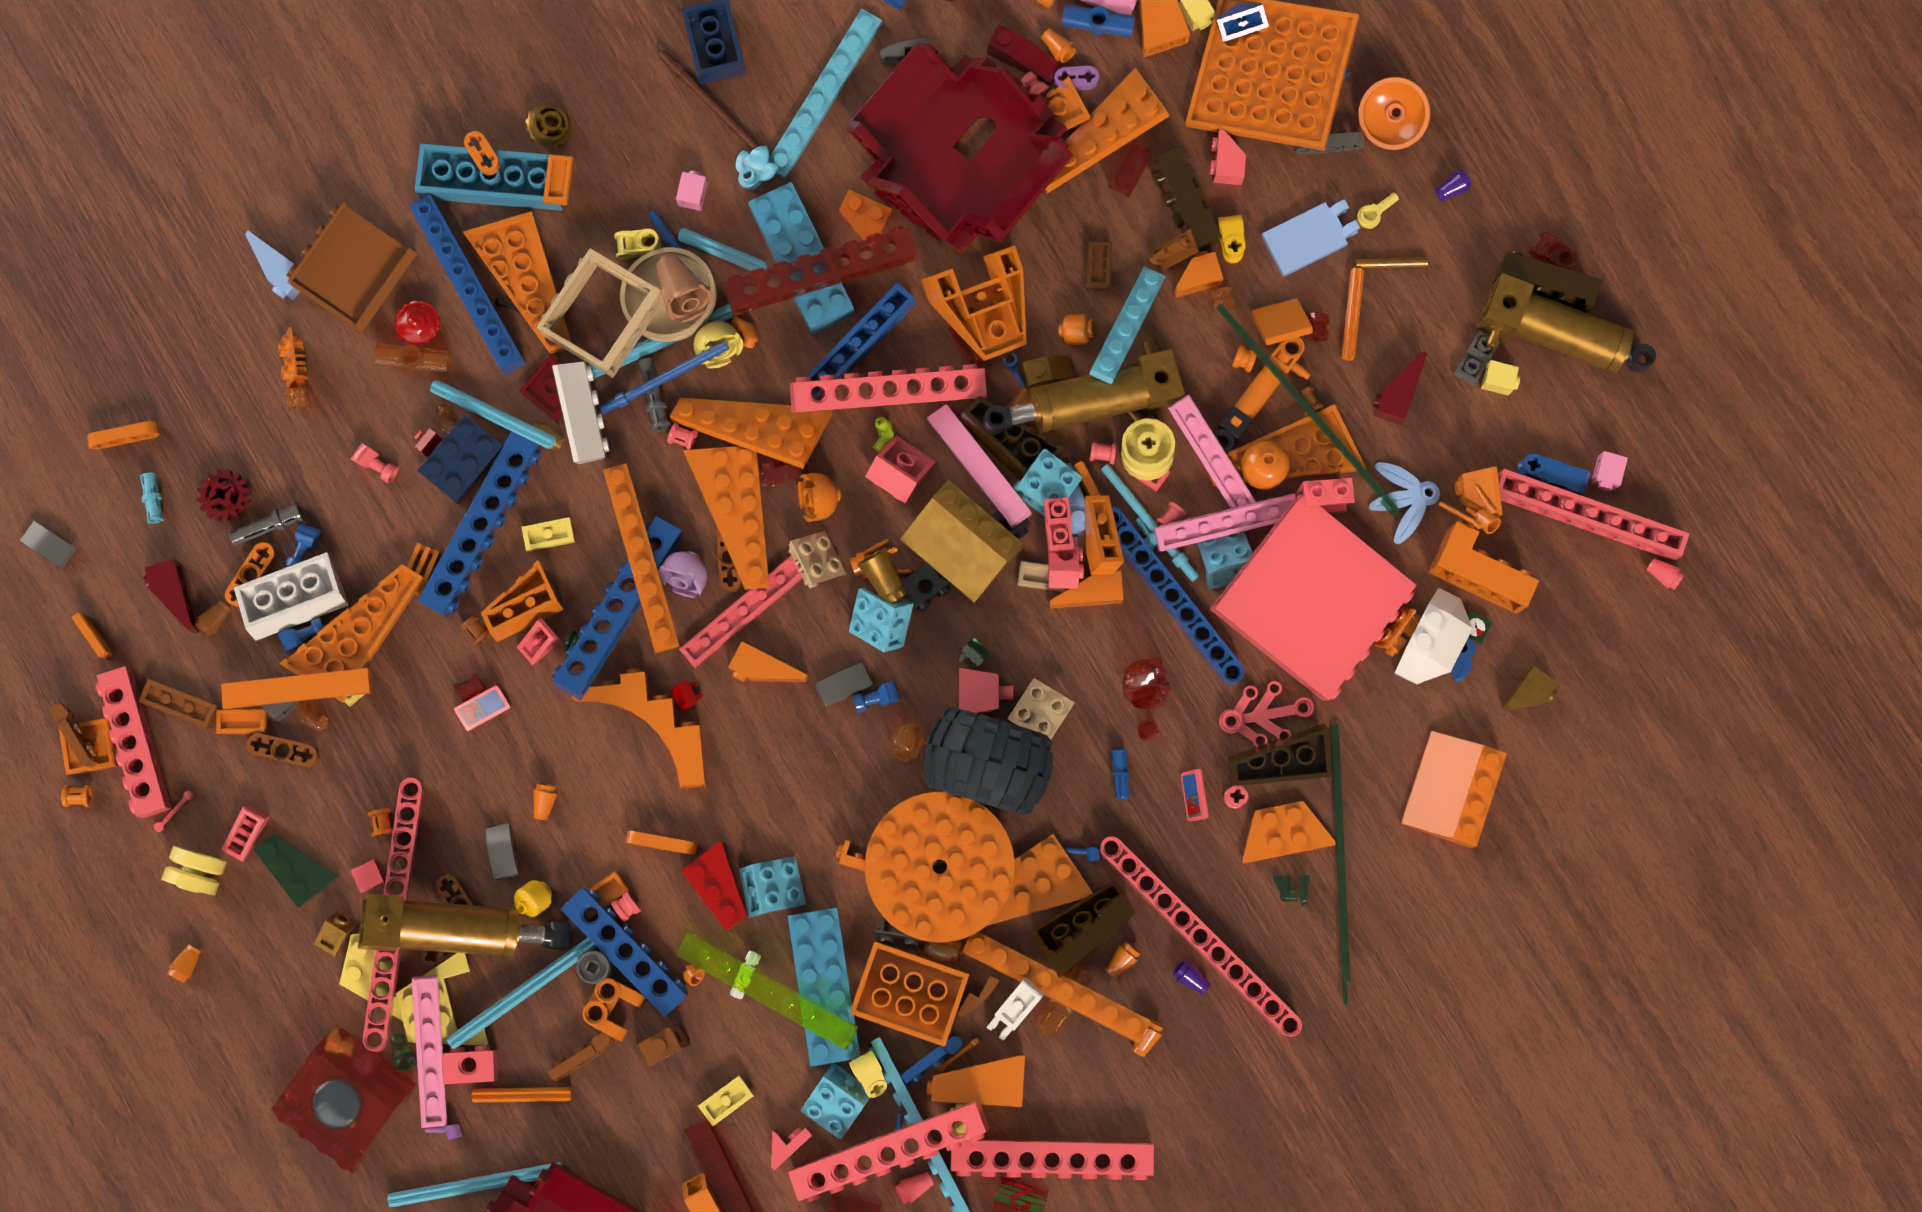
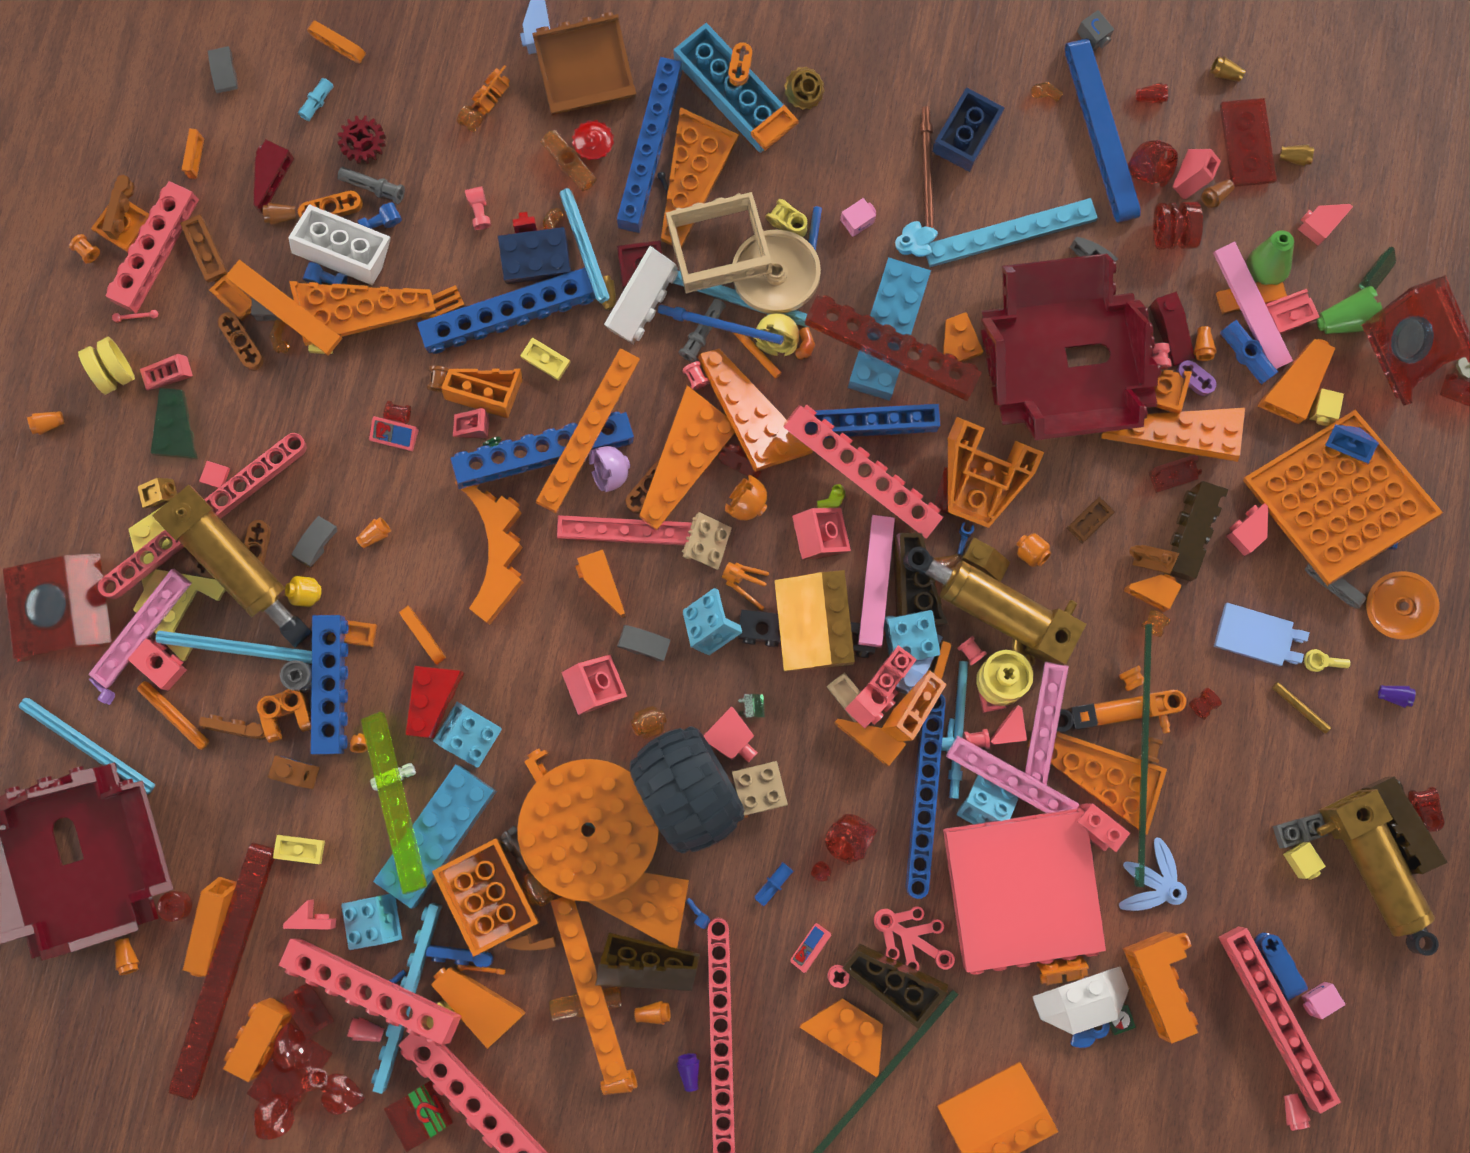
camera: 45 degrees right, 0 degrees up
(381, 822) = (255, 447): orange bush -> none
(402, 1054) = (122, 613): cone -> none
(626, 906) = (358, 655): coral wheel -> none
(681, 289) = (786, 275): nougat cone -> none
(685, 696) = (531, 550): red tile -> none
(717, 374) = (759, 355): none -> orange bar
(720, 250) = (840, 274): medium azure axle -> none
(835, 753) = (594, 684): none -> coral slope
(869, 1073) = (406, 925): light yellow piece -> none
(883, 575) = (738, 594): pearl gold plant -> none
(885, 695) = (666, 677): blue leg -> none
(1016, 1007) = (549, 976): white hinge -> none
(1127, 325) = (1070, 579): medium azure plate -> none
(1189, 484) = (1011, 729): none -> coral slope
(1232, 236) = (1205, 584): yellow piece -> none
(1265, 464) = (1077, 765): orange cylinder -> none
(1281, 321) = (1183, 677): orange tile -> none
(1286, 894) = (808, 1078): clear green piece -> none
(1352, 314) = (1239, 717): orange axle -> none
(1397, 396) = (1216, 805): dark red slope -> none
(1483, 519) = (1198, 951): orange plant -> none
(1489, 484) = (1213, 930): orange slope -> none
(1532, 690) = (1119, 1102): pearl gold slope -> none

